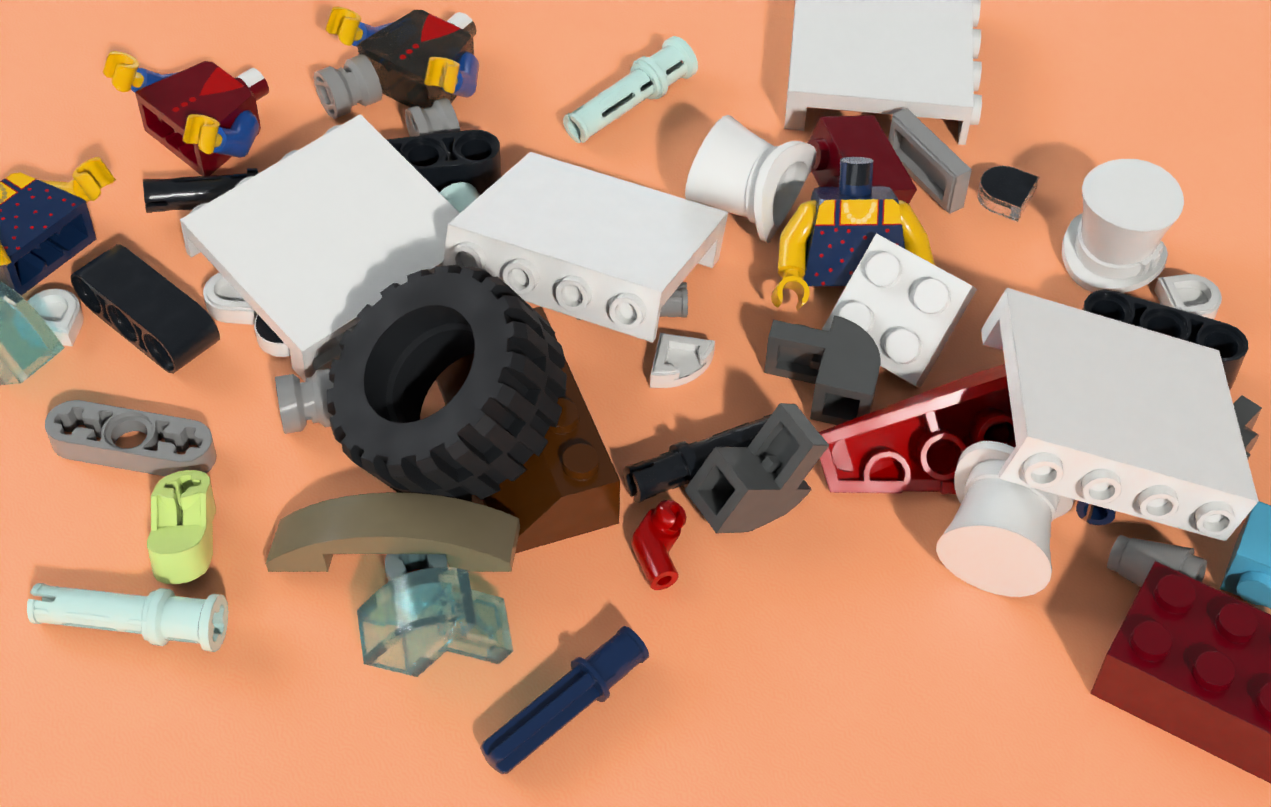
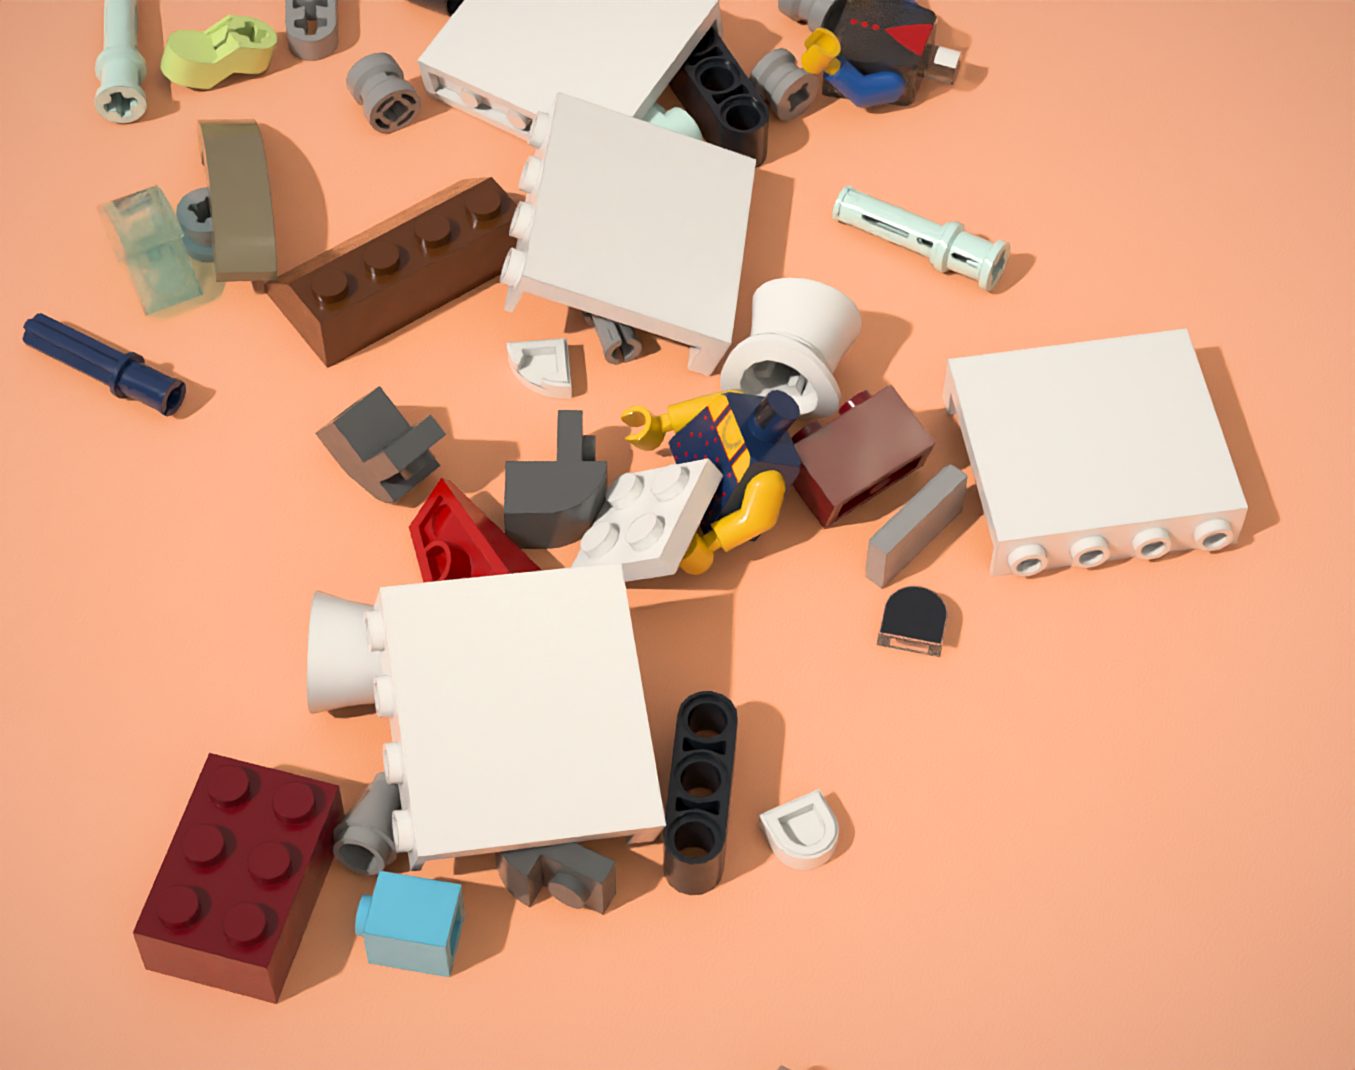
camera: 75 degrees right, 5 degrees up
(402, 350) = (375, 157): black tyre -> none
(654, 541) = (297, 391): red arm -> none
(683, 461) = (454, 449): black pin -> none
(1122, 226) = (857, 721): white hat -> none

